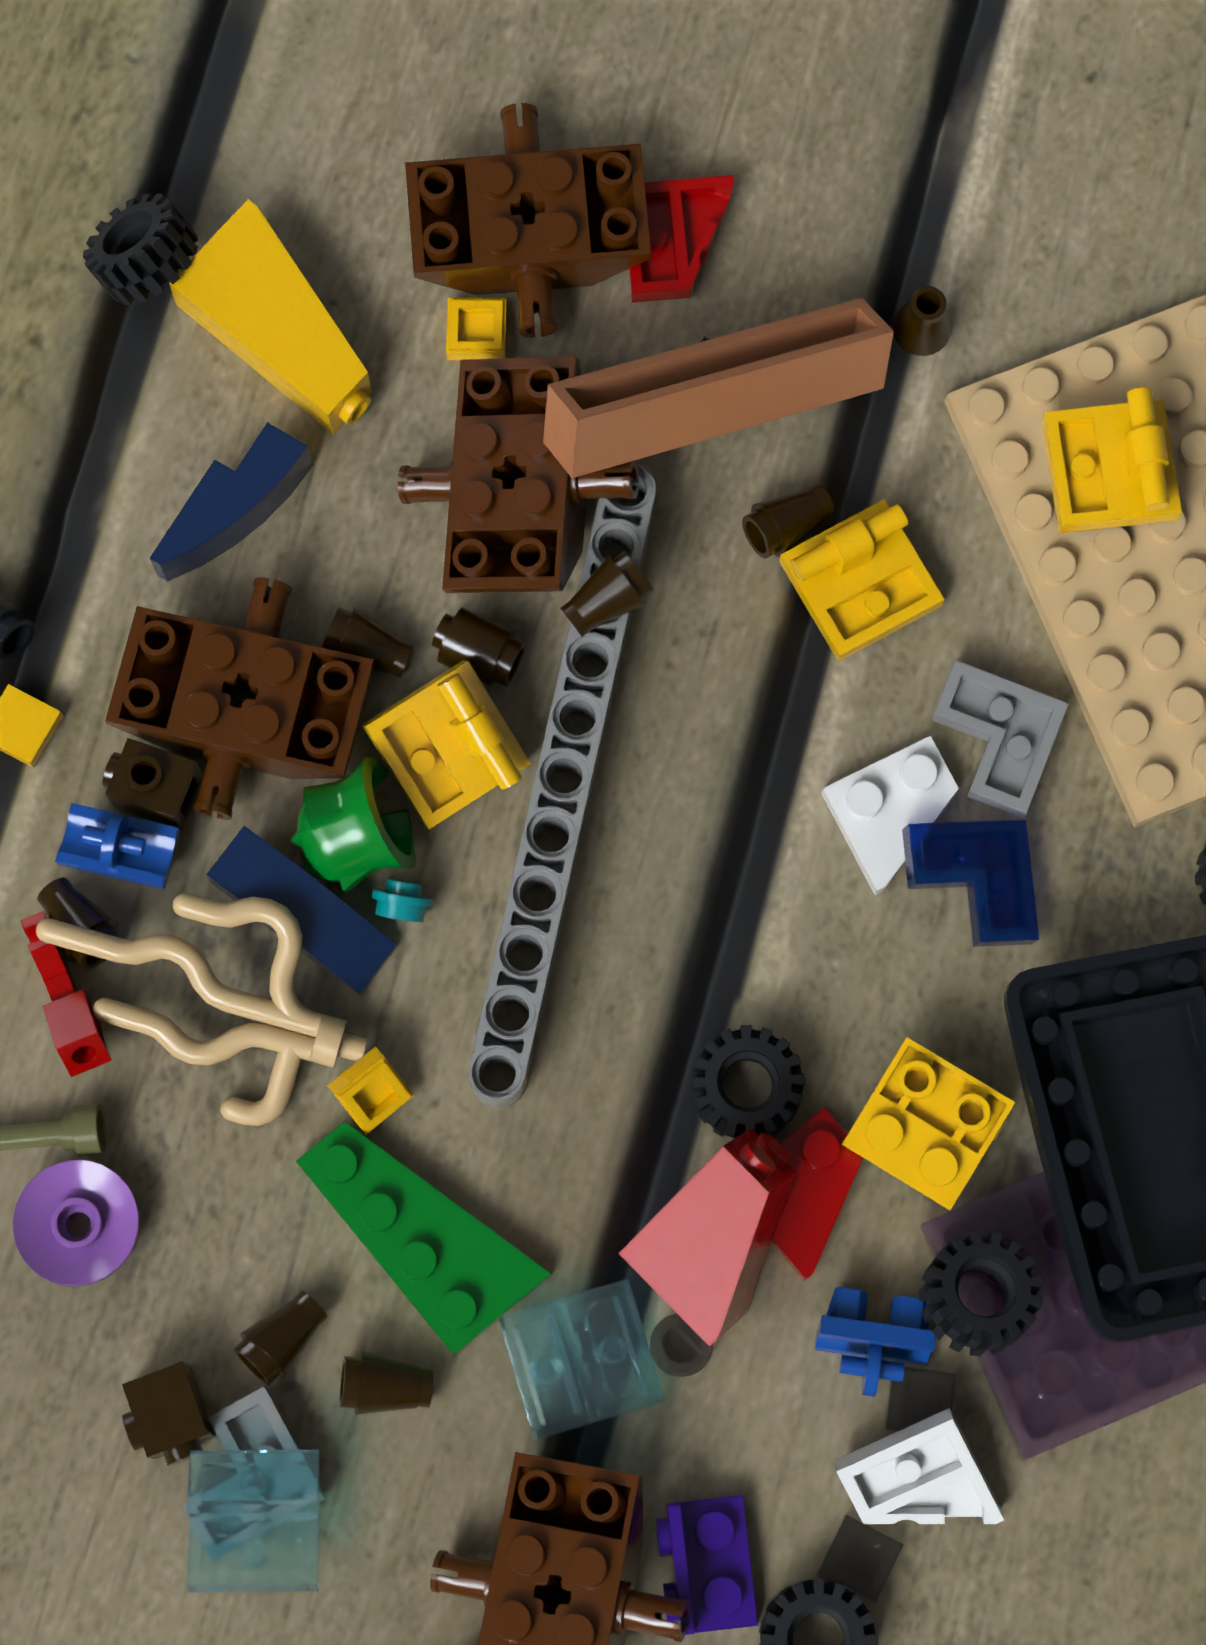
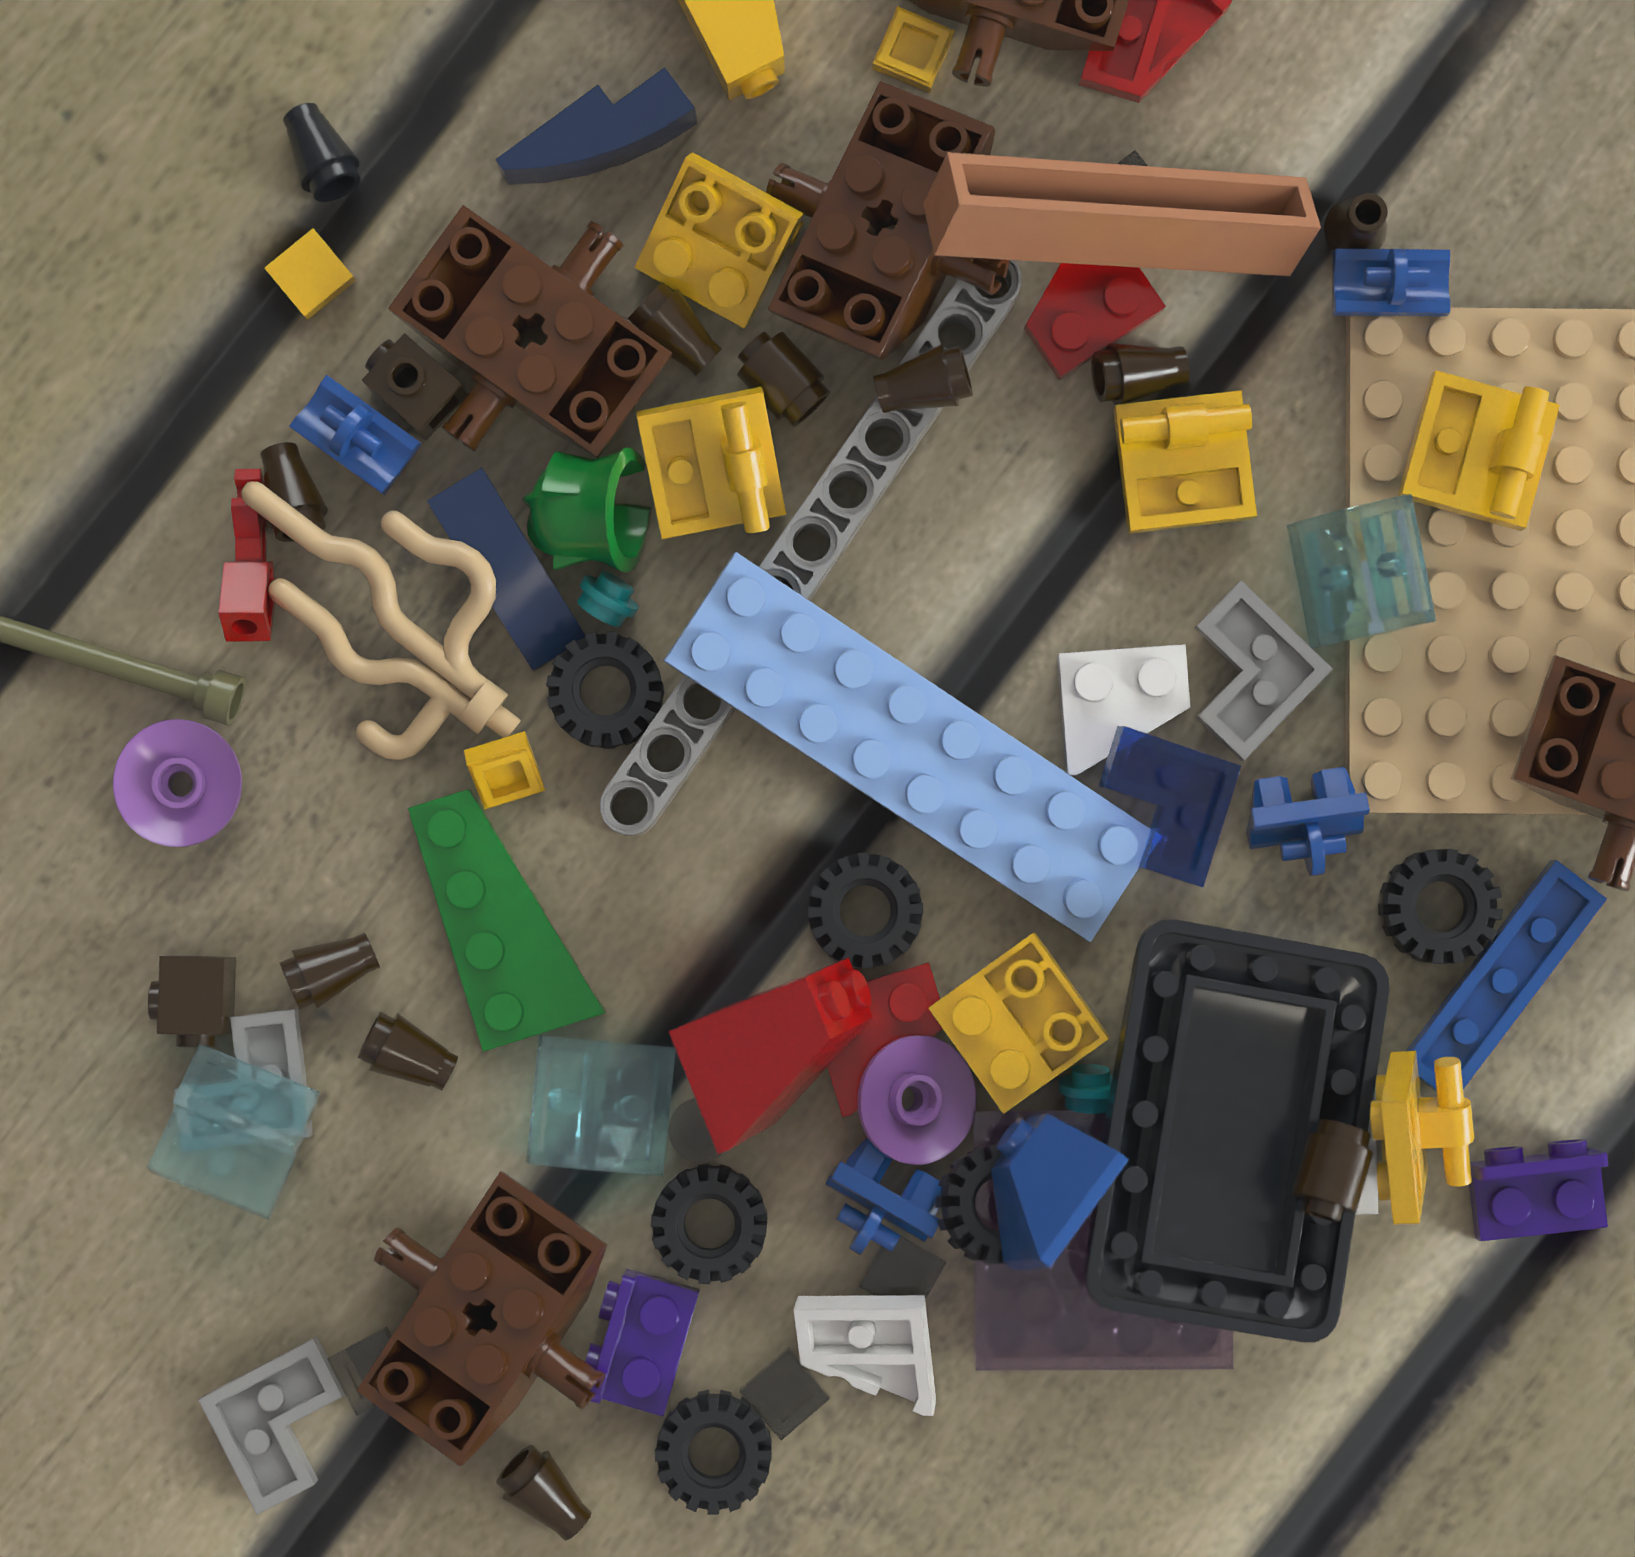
camera: 20 degrees right, 10 degrees up
(374, 551) = (719, 240): none -> yellow plate
(426, 946) = (574, 665): none -> black tyre
(721, 483) = (1088, 310): none -> red wing
(727, 919) = (910, 746): none -> light blue plate
(764, 1418) = (701, 1262): none -> black tyre
(888, 1229) = (941, 1103): none -> medium lavender dish
(972, 357) = (1390, 282): none -> blue hips
(1015, 1161) = (1086, 1088): none -> teal plate
(1020, 1249) = (1047, 1187): none -> blue slope
(1056, 609) = (1361, 571): none -> clear light blue slope
(1106, 849) = (1307, 827): none -> blue hips

